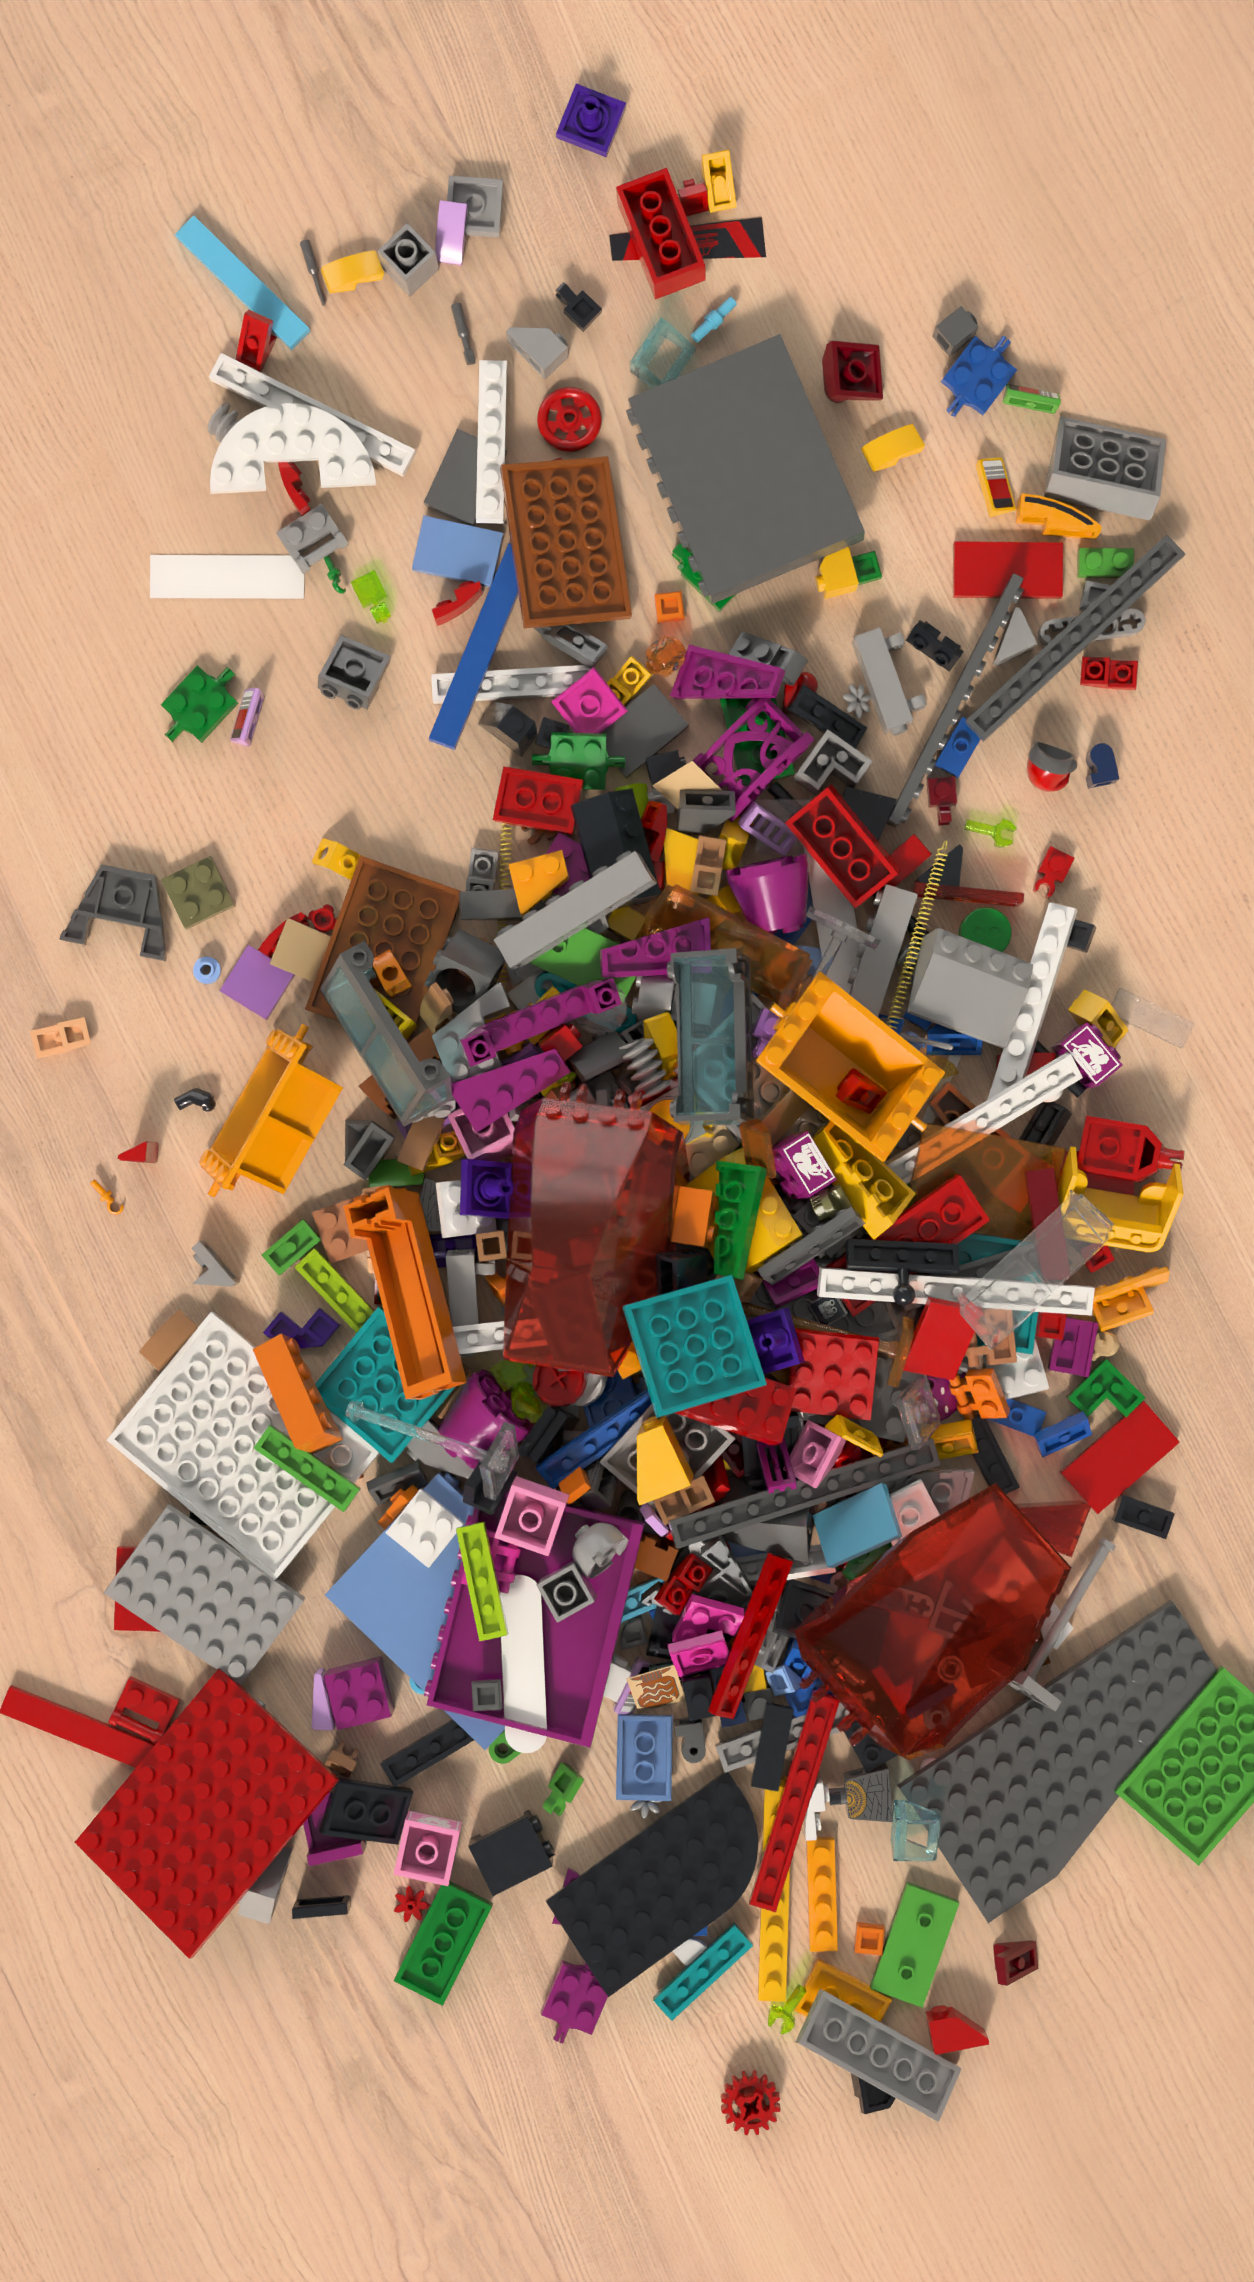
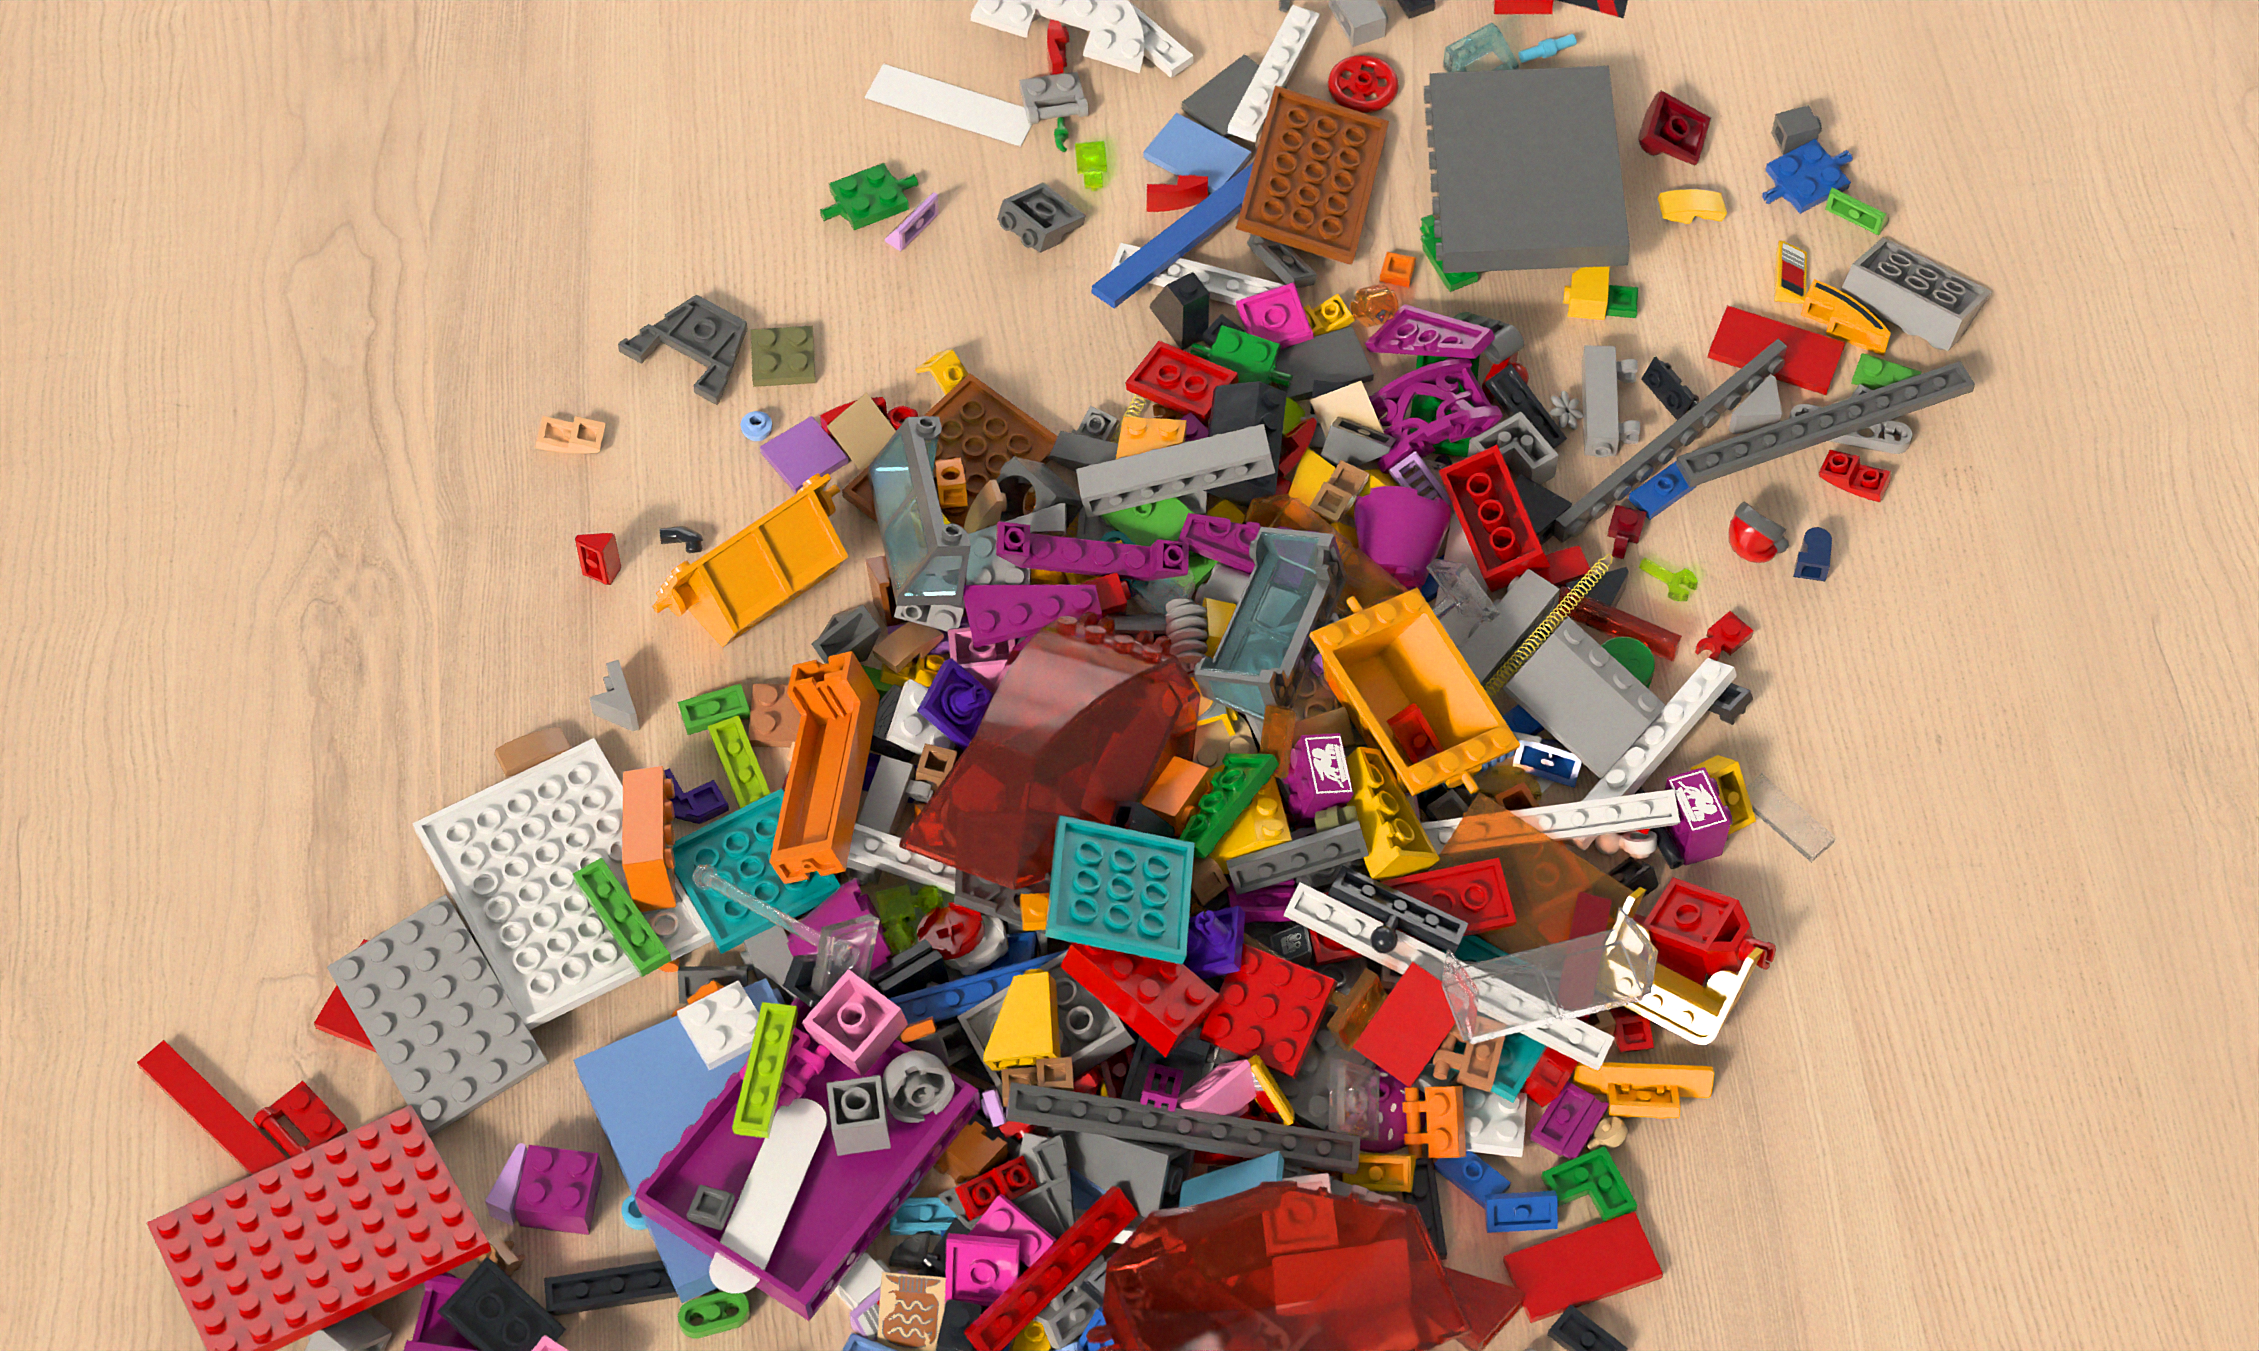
camera: 20 degrees right, 30 degrees down
(105, 1196) = (538, 595): light orange hand -> none

